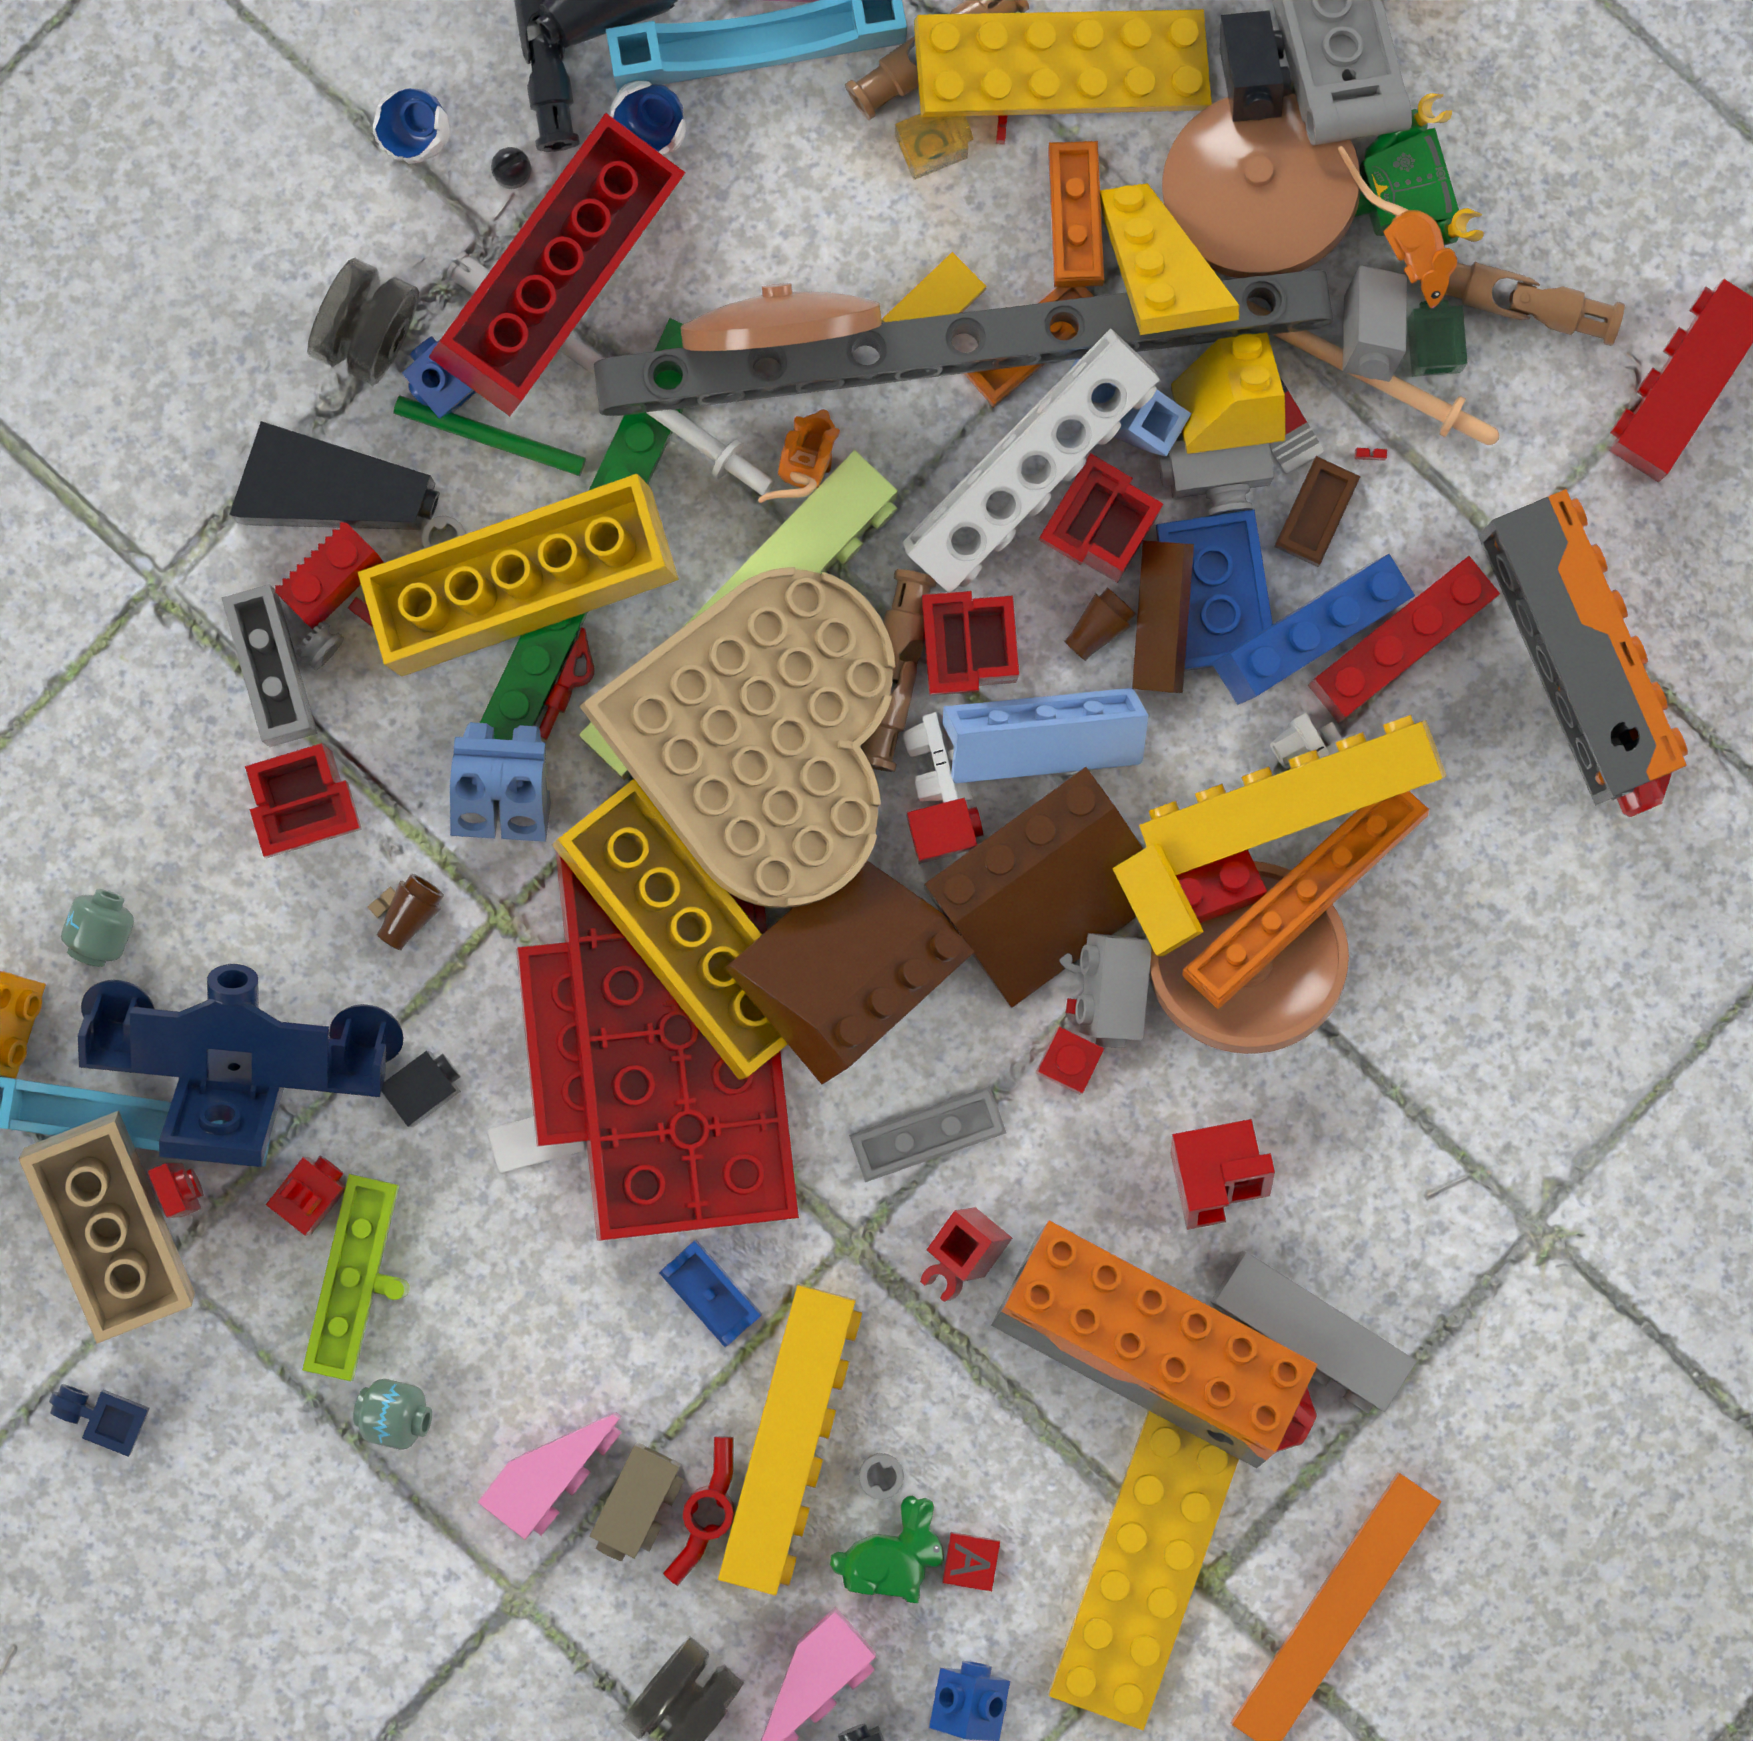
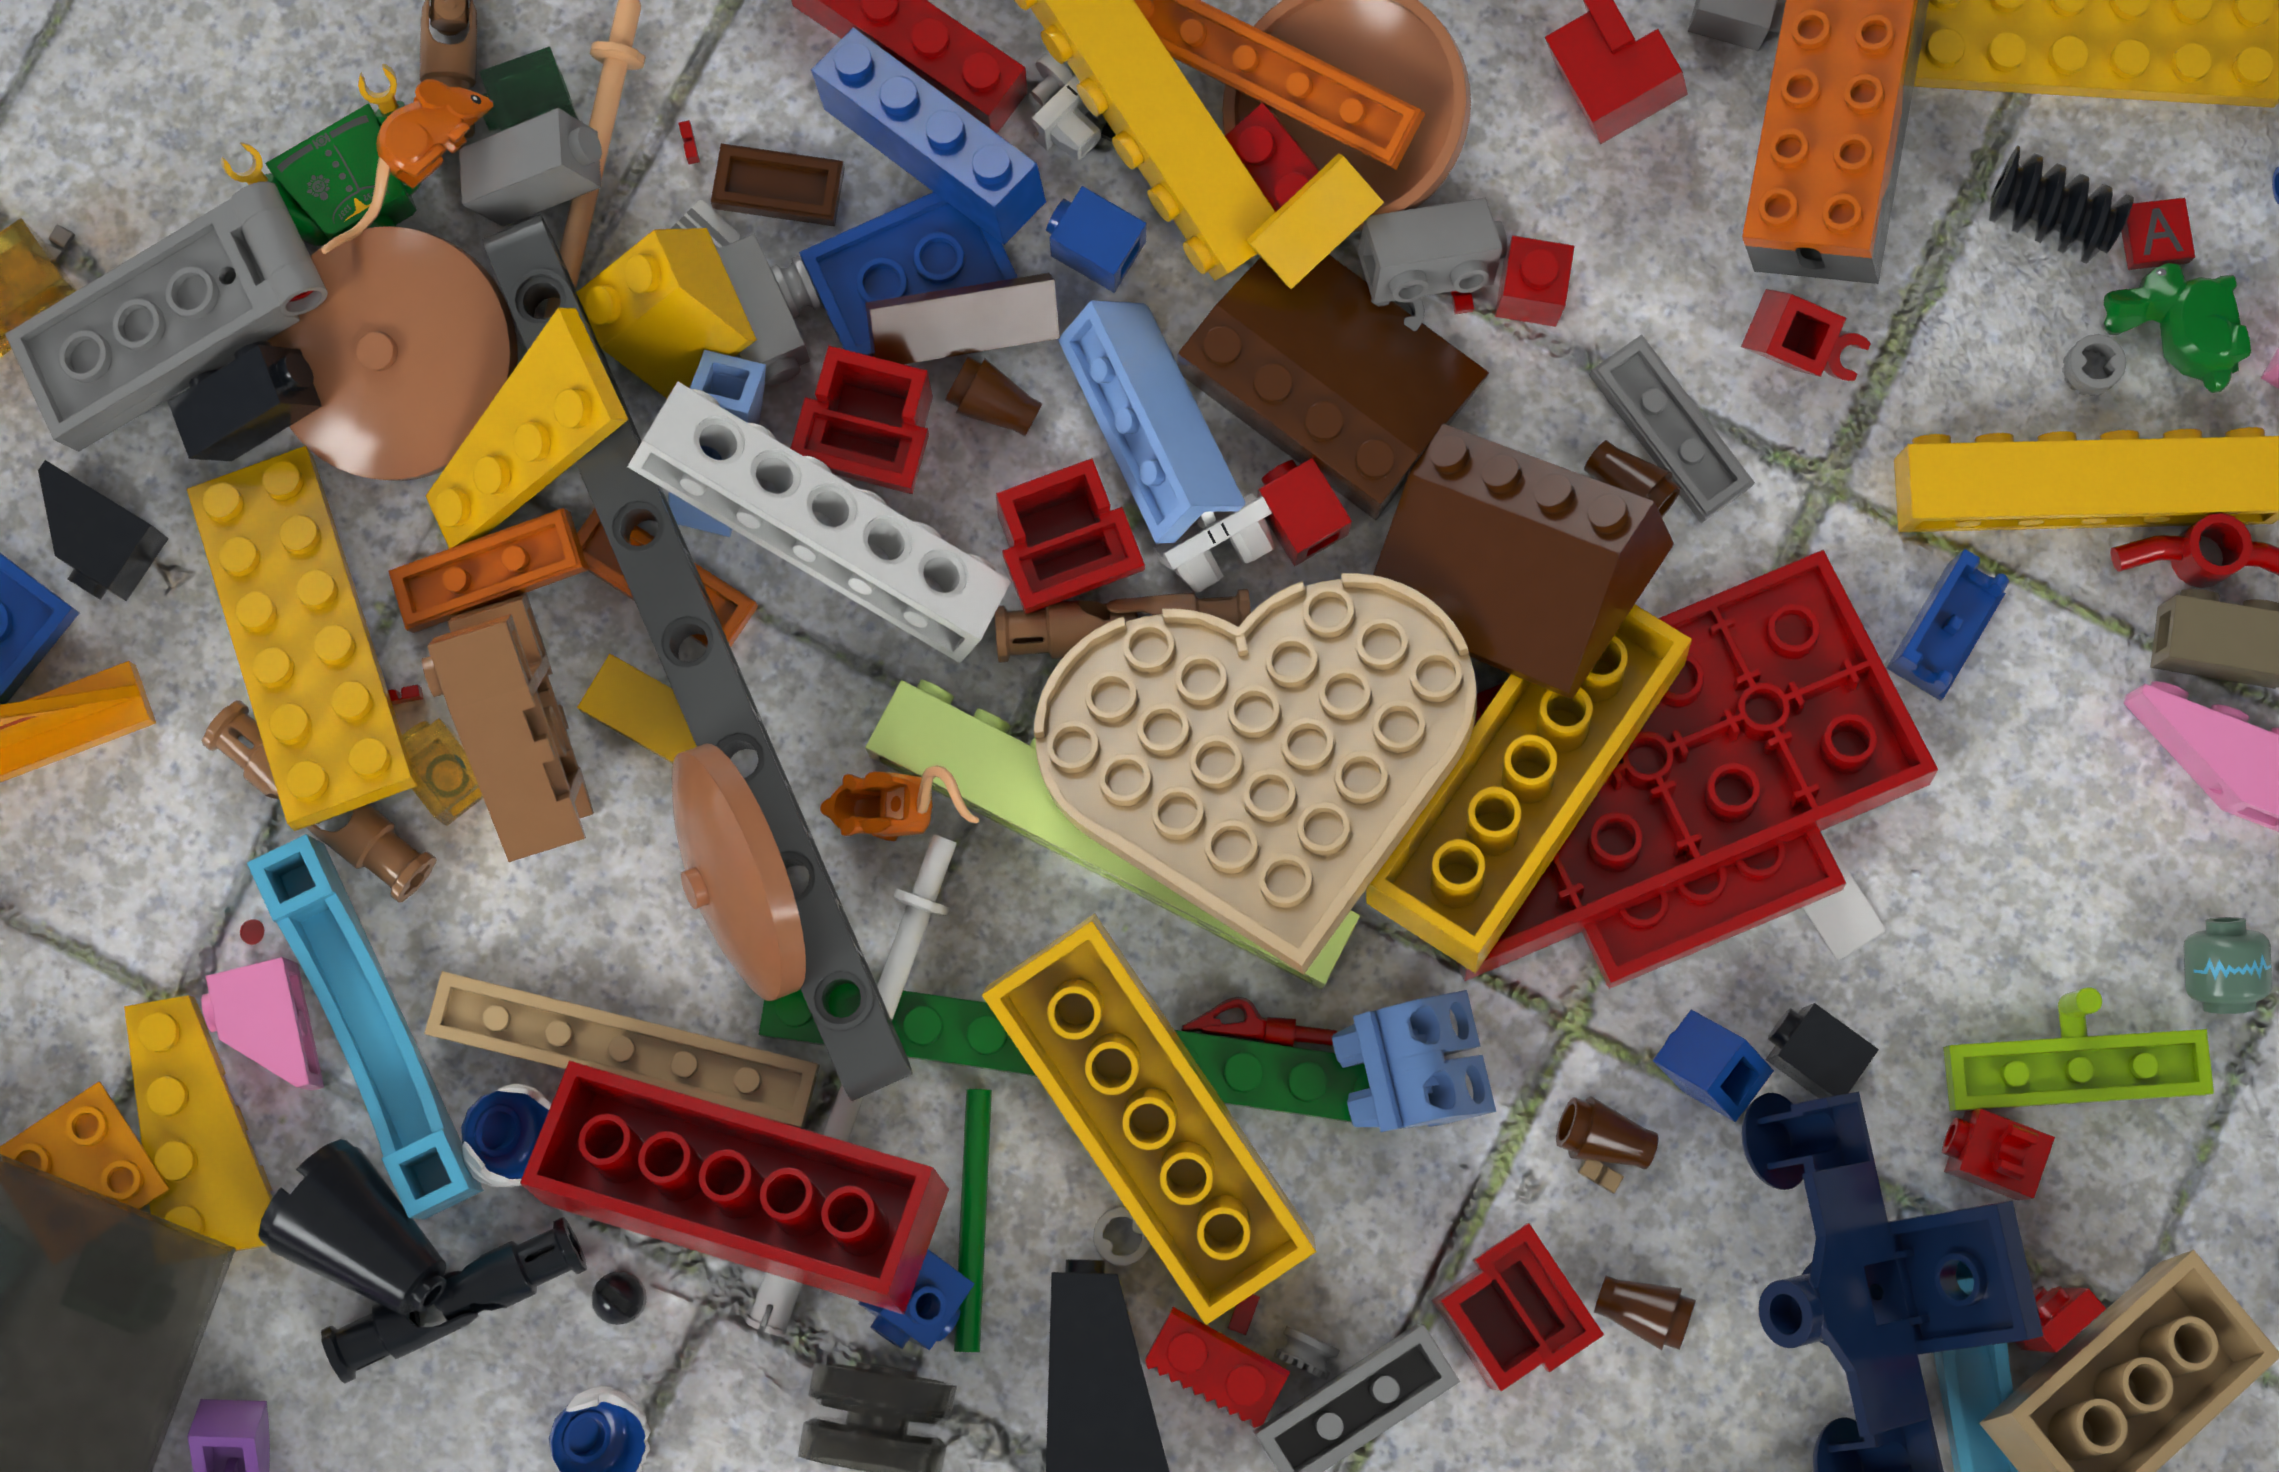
camera: 105 degrees left, 5 degrees down
(274, 901) = (1647, 1310): none -> reddish brown cone
(443, 997) = (1713, 1065): none -> blue brick
(688, 217) = (659, 1055): none -> tan plate
(891, 1088) = (1633, 475): none -> reddish brown cone
(945, 193) = (511, 725): none -> medium nougat wedge
(1011, 1485) = (2059, 206): none -> black piece
(1201, 737) = (1096, 238): none -> blue brick

